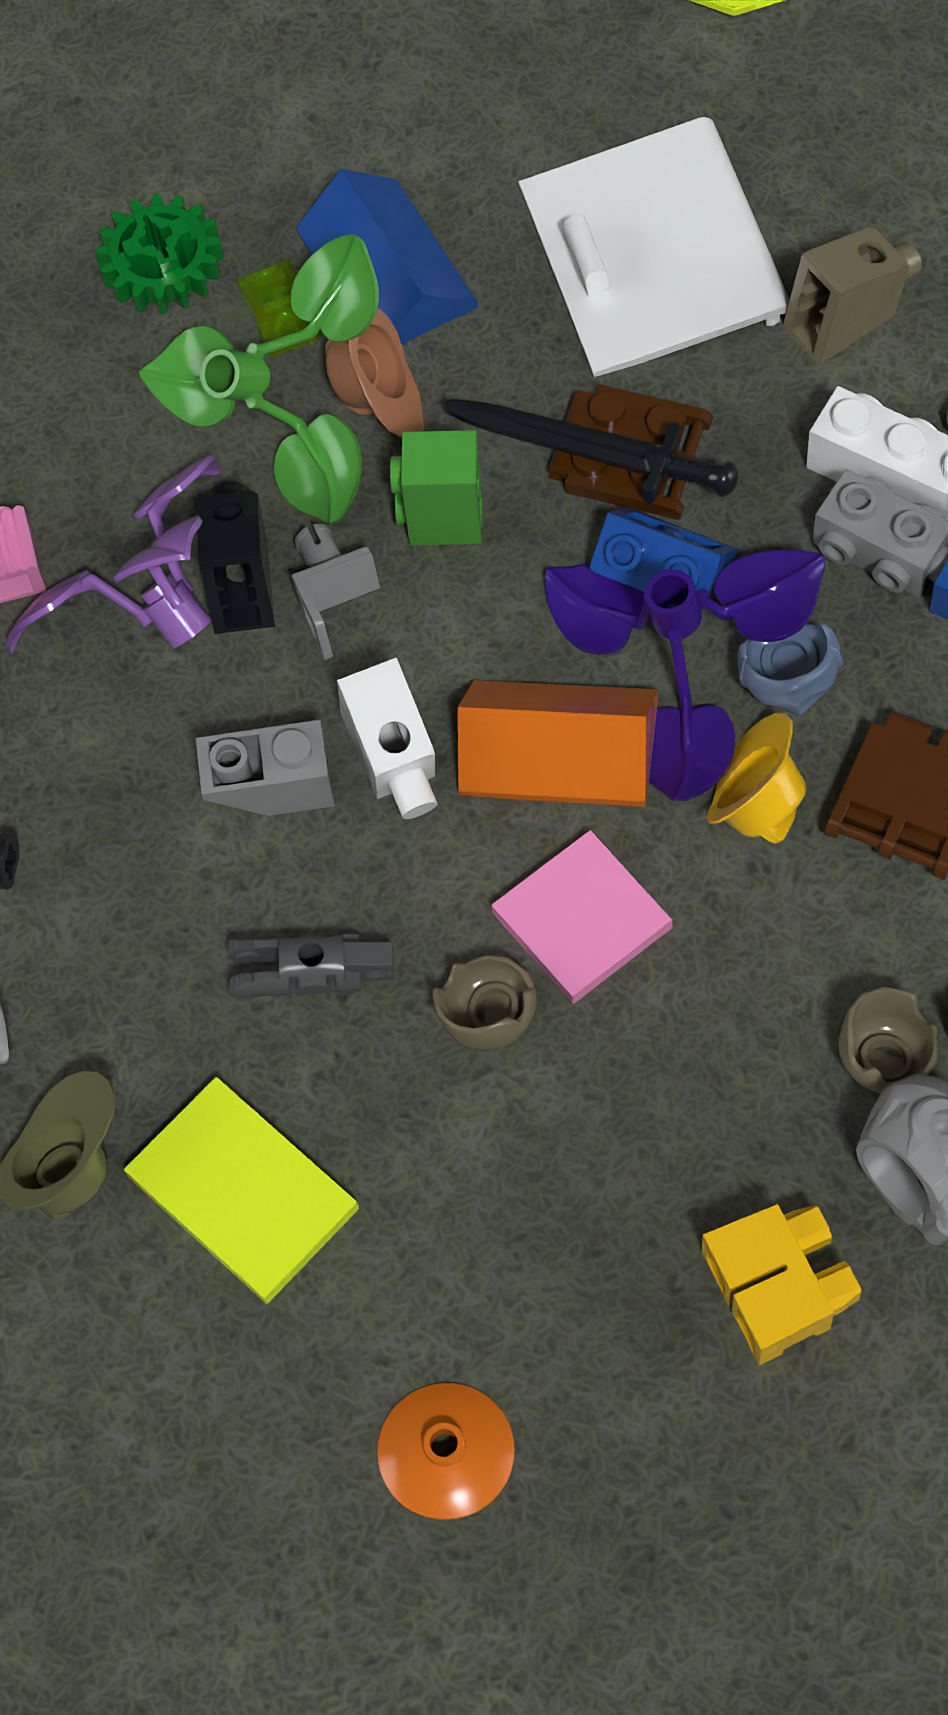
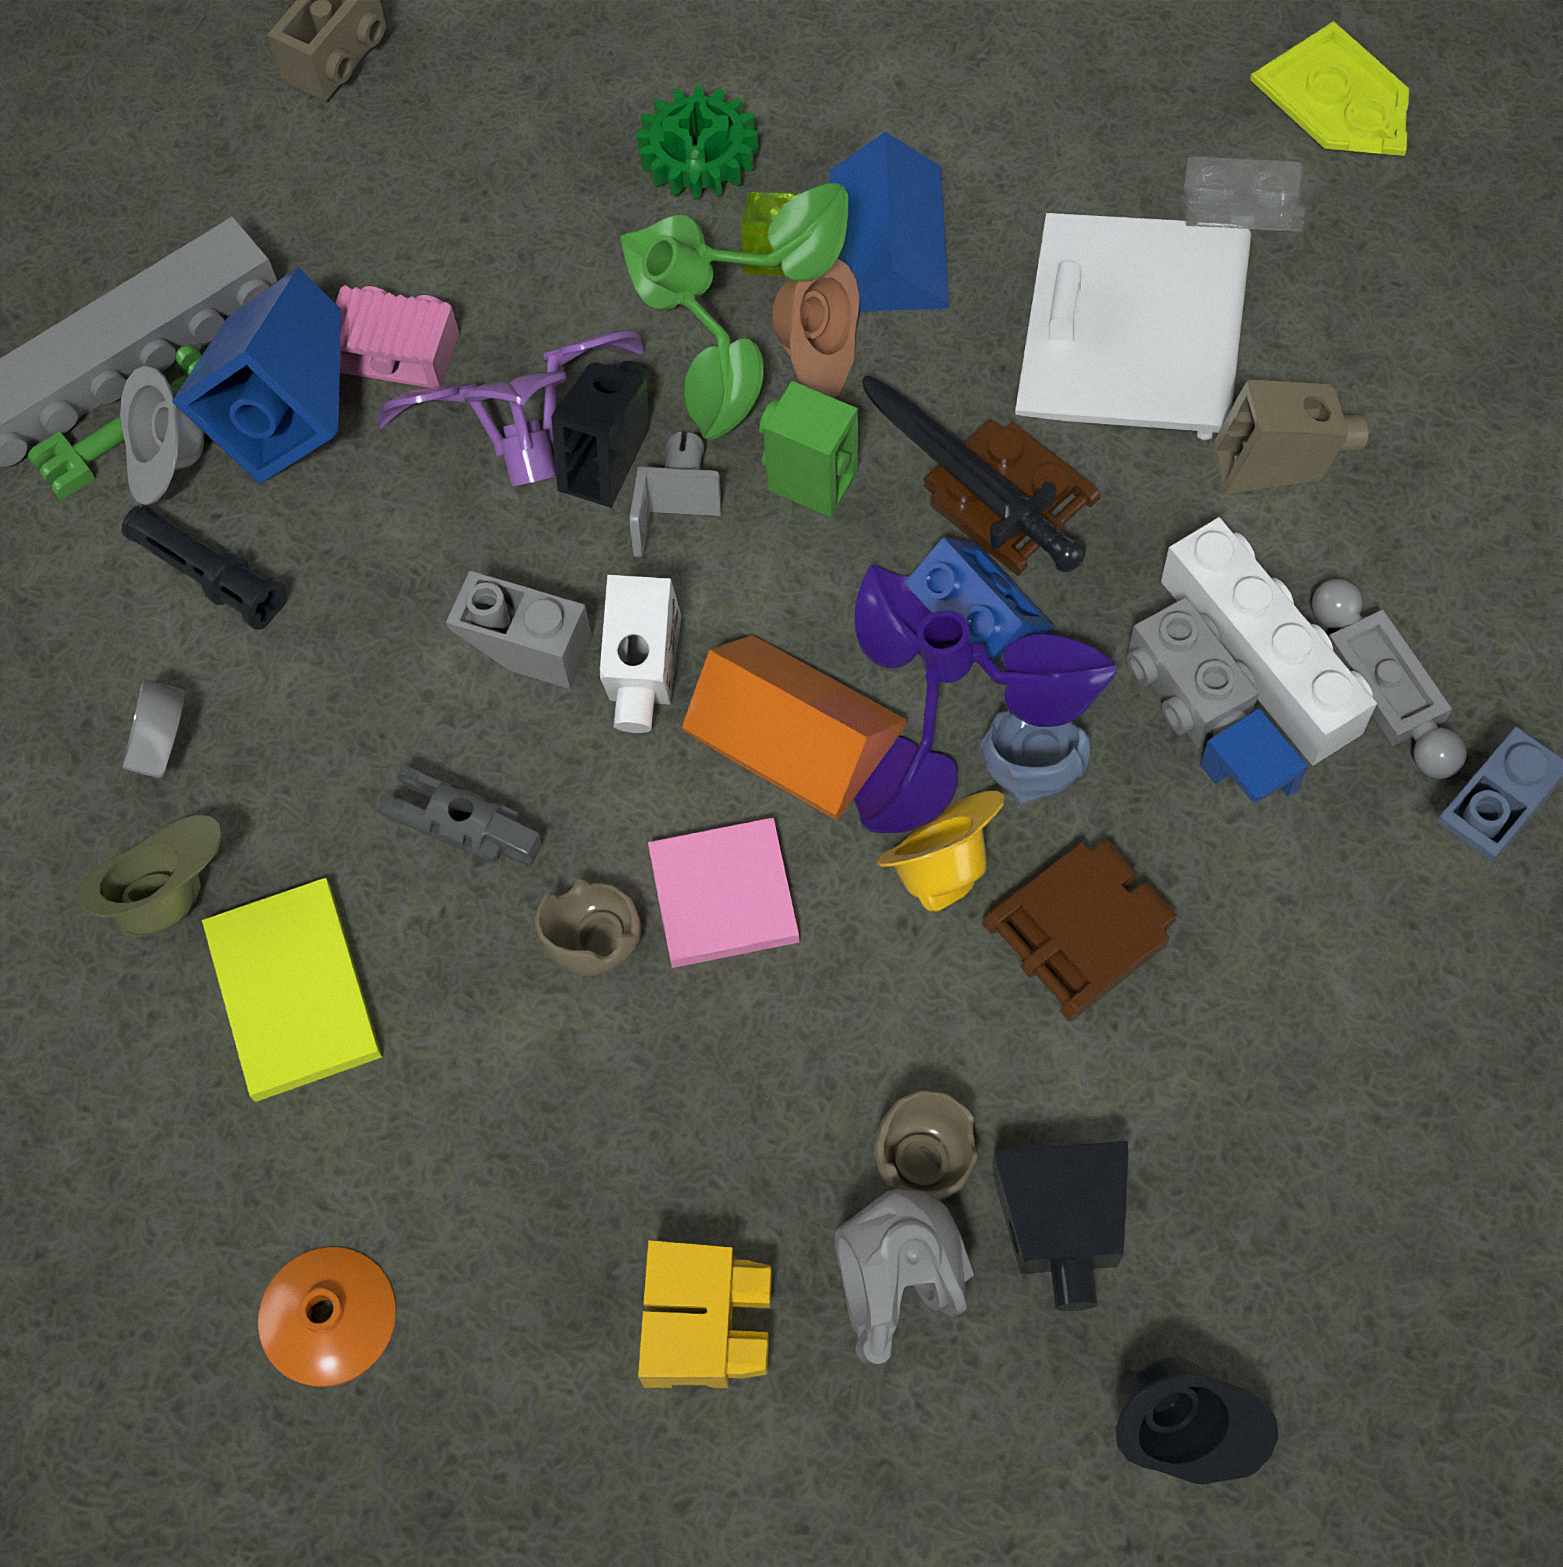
camera: 25 degrees right, 0 degrees up
(689, 89) = (1243, 193): none -> clear bracket

